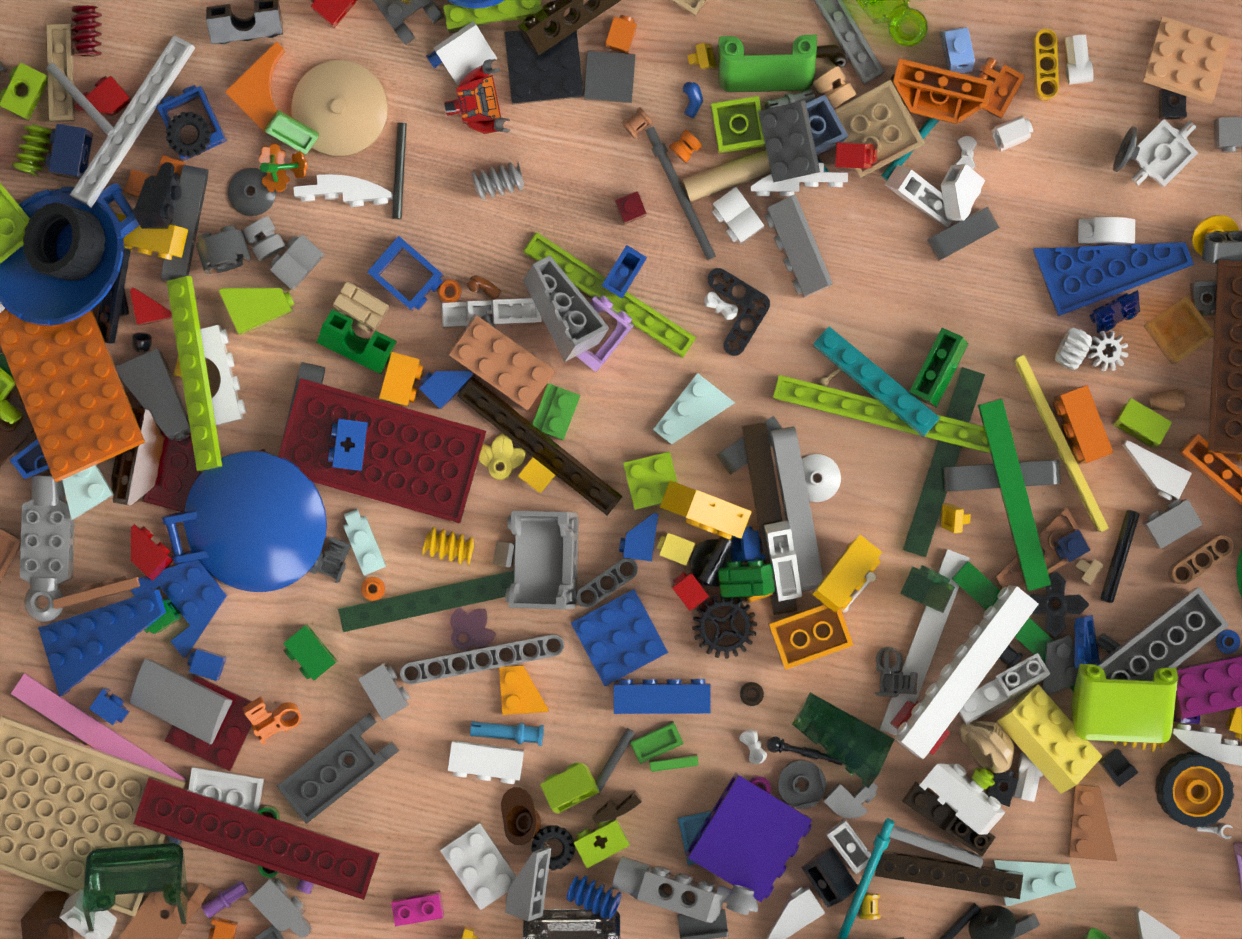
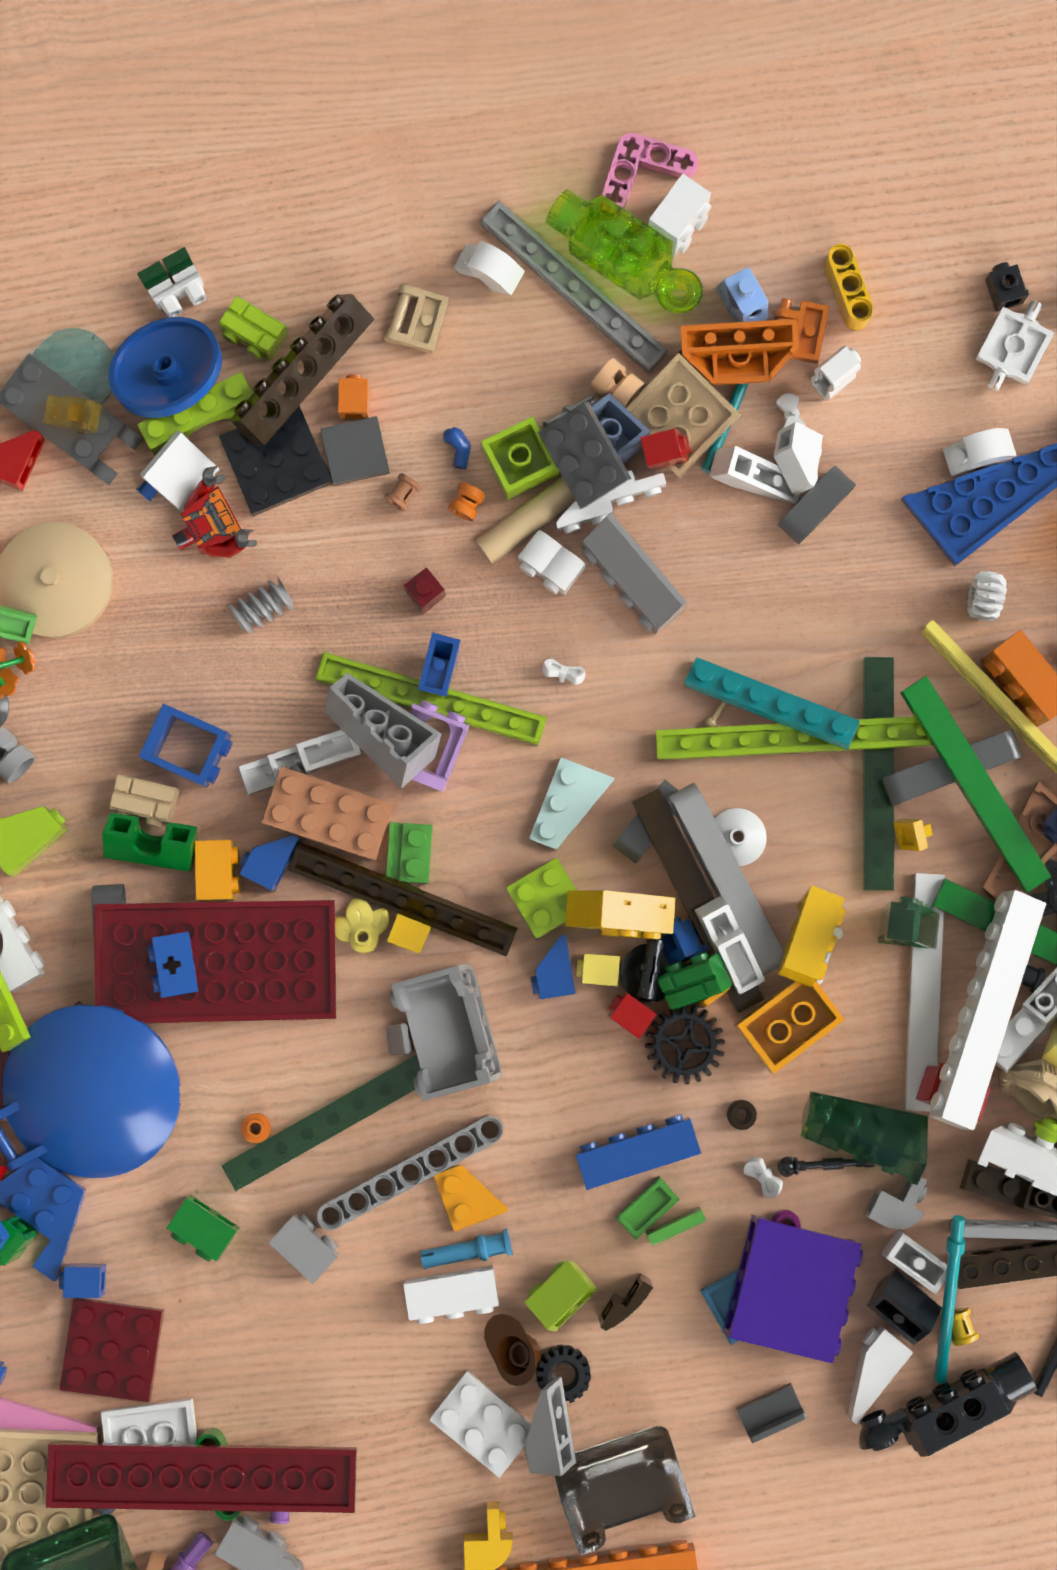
camera: 15 degrees left, 5 degrees down
(179, 700) = (62, 1335): light grey slope -> none
(266, 723) = (175, 1330): orange piece -> none
(296, 262) = (53, 771): light grey brick -> none
(328, 776) = (267, 1369): dark grey hinge -> none
(332, 560) = (198, 1108): dark grey piece -> none
(354, 190) = (95, 667): white slope -> none
(363, 542) = (229, 1077): light aqua hinge -> none
(399, 170) = (144, 630): pearl dark grey bar -> none
(417, 908) = (423, 1500): dark pink brick -> none
(449, 283) = (237, 744): orange plate -> none
(449, 546) = (330, 1049): yellow piece -> none
(473, 626) = (386, 1135): plate -> none
(485, 285) = (284, 732): dark orange arm -> none
(593, 853) = (616, 1365): lime brick -> none
(593, 898) = (630, 1420): blue piece -> none
(599, 592) = (518, 1044): dark grey beam -> none
(614, 758) = (603, 1243): dark grey bar -> none
(619, 637) = (565, 1096): blue plate -> none
(648, 886) = (689, 1383): light grey brick -> none
(660, 150) = (439, 517): dark grey bar -> none
(704, 56) = (456, 395): yellow tile -> none
(745, 302) = (591, 660): black beam -> none
(766, 72) = (533, 386): bright green windscreen -> none
(812, 792) = (829, 1220): dark grey plate -> none
(833, 53) = (602, 347): dark brown arm -> none
(894, 682) = (903, 1047): dark grey piece -> none
(939, 367) = (839, 664): green brick -> none
(1078, 66) = (886, 278): white piece -> none
(1114, 356) = (1033, 596): white gear -> none
(1124, 308) = (1025, 535): clear blue hinge -> none
(1127, 150) = (973, 352): dark grey dish -> none
(1186, 60) = (1007, 233): light nougat plate -> none

